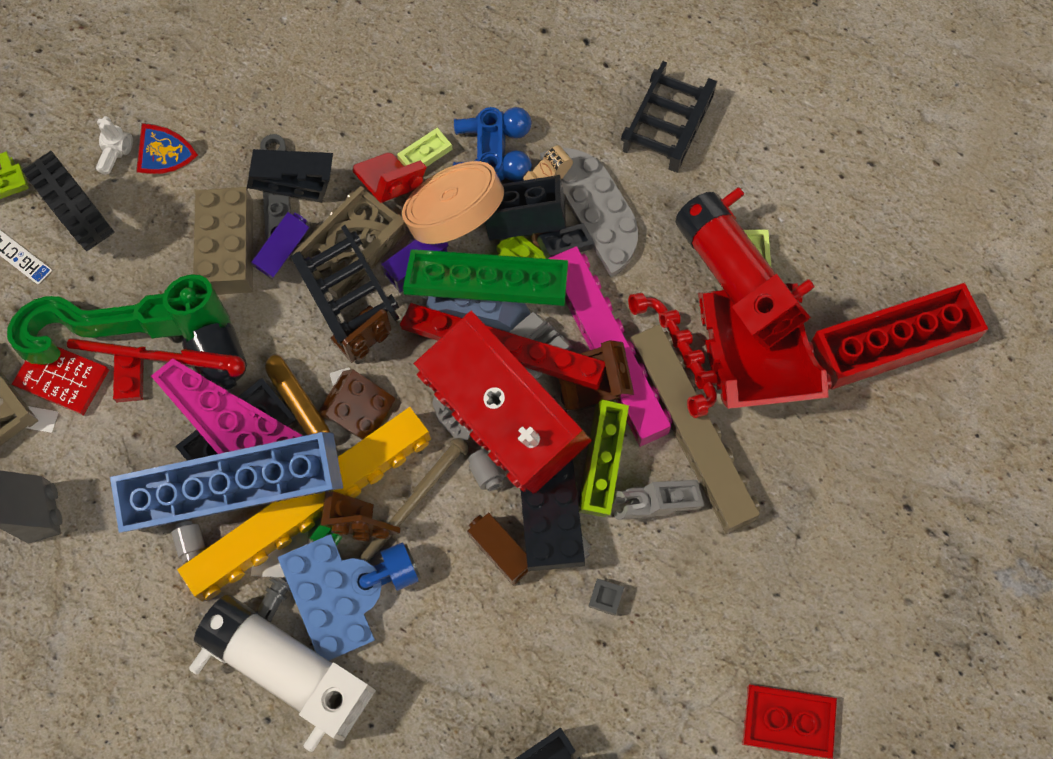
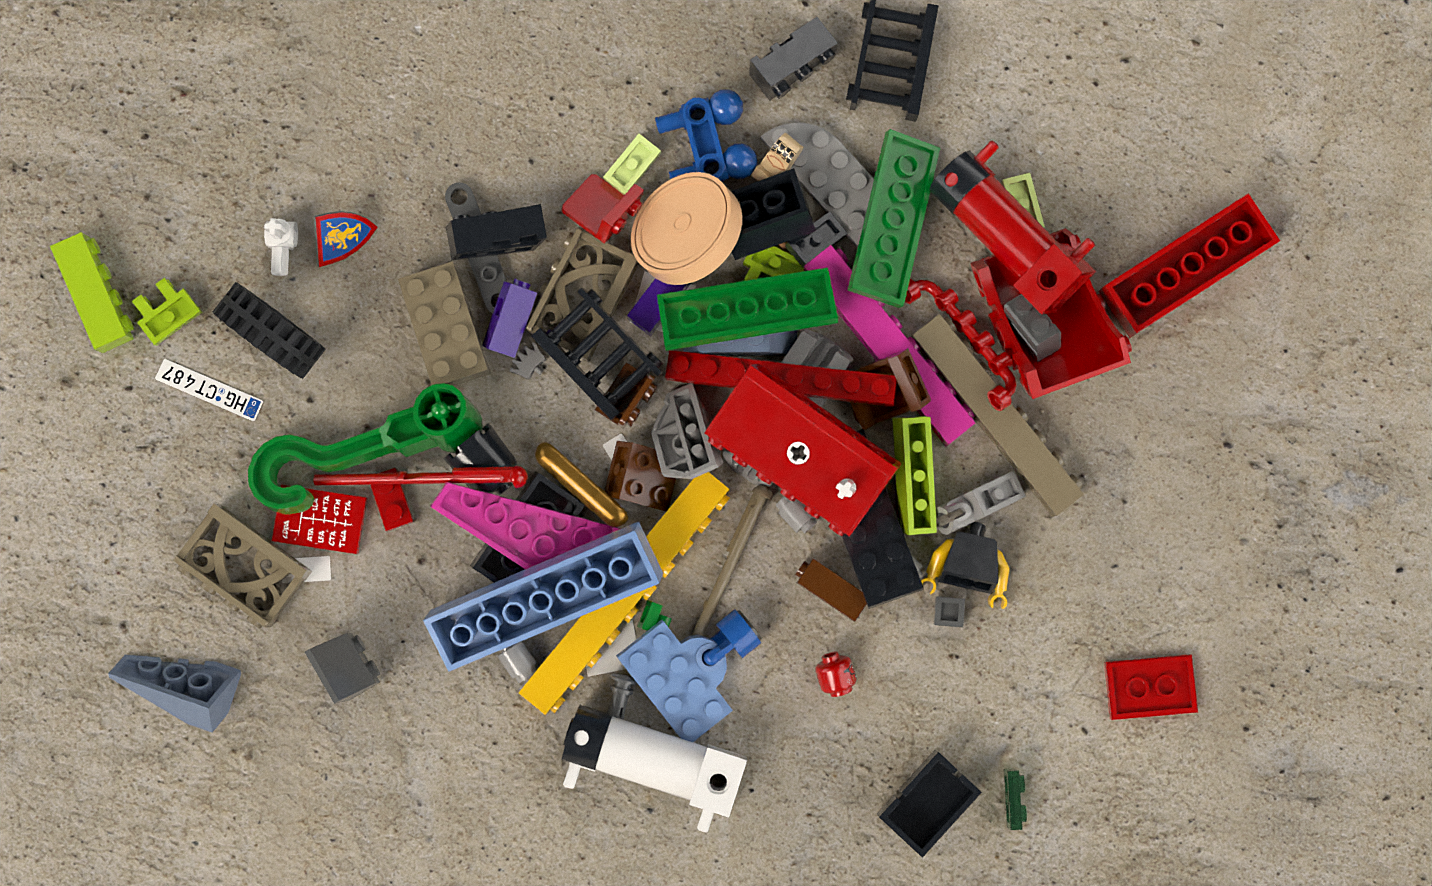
camera: 15 degrees left, 15 degrees up
(288, 289) = (529, 363): none -> light grey piece
(354, 517) = (678, 596): reddish brown bracket -> none
(396, 380) = (680, 436): none -> light grey wedge
(482, 629) = (835, 674): none -> red head
(582, 98) = (793, 59): none -> wedge
(636, 554) = (970, 563): none -> black torso
(637, 239) = (894, 219): none -> green plate
(743, 353) = (1032, 328): none -> dark grey brick

